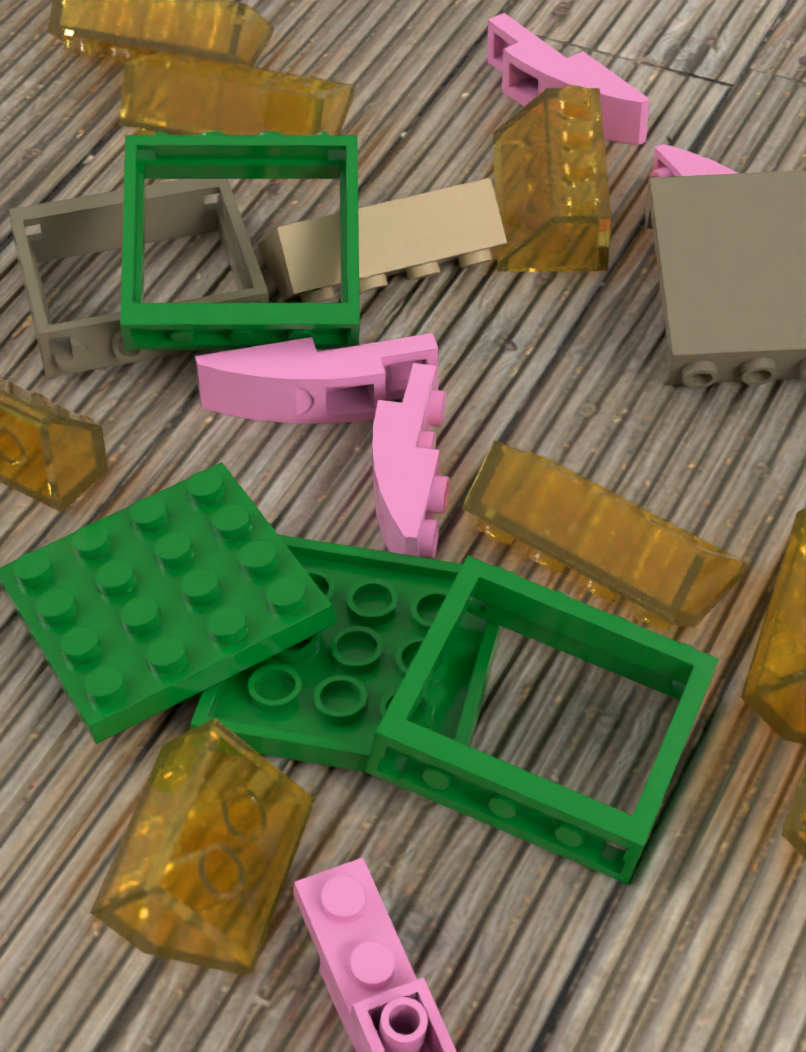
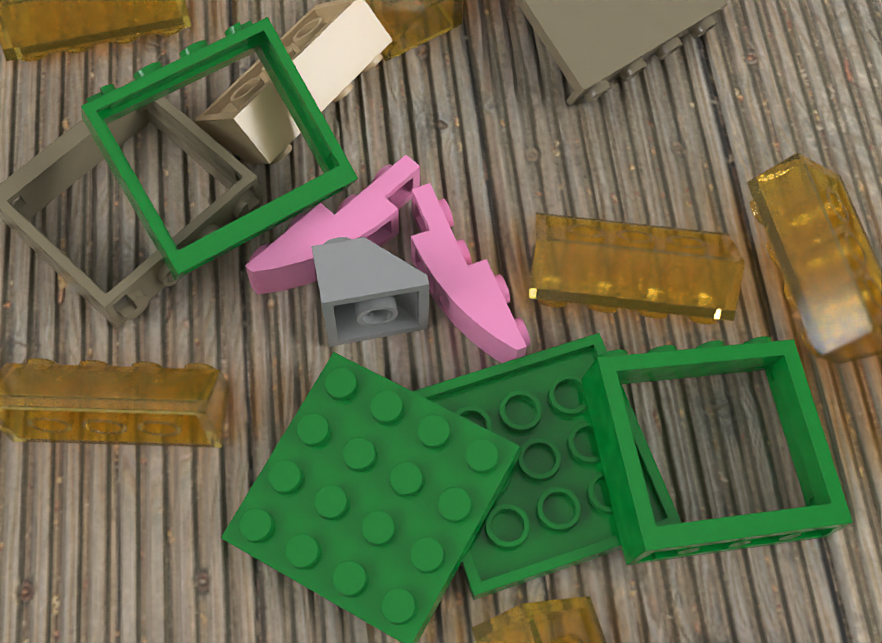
camera: 35 degrees left, 20 degrees up
(289, 426) = (368, 291): none -> light grey slope

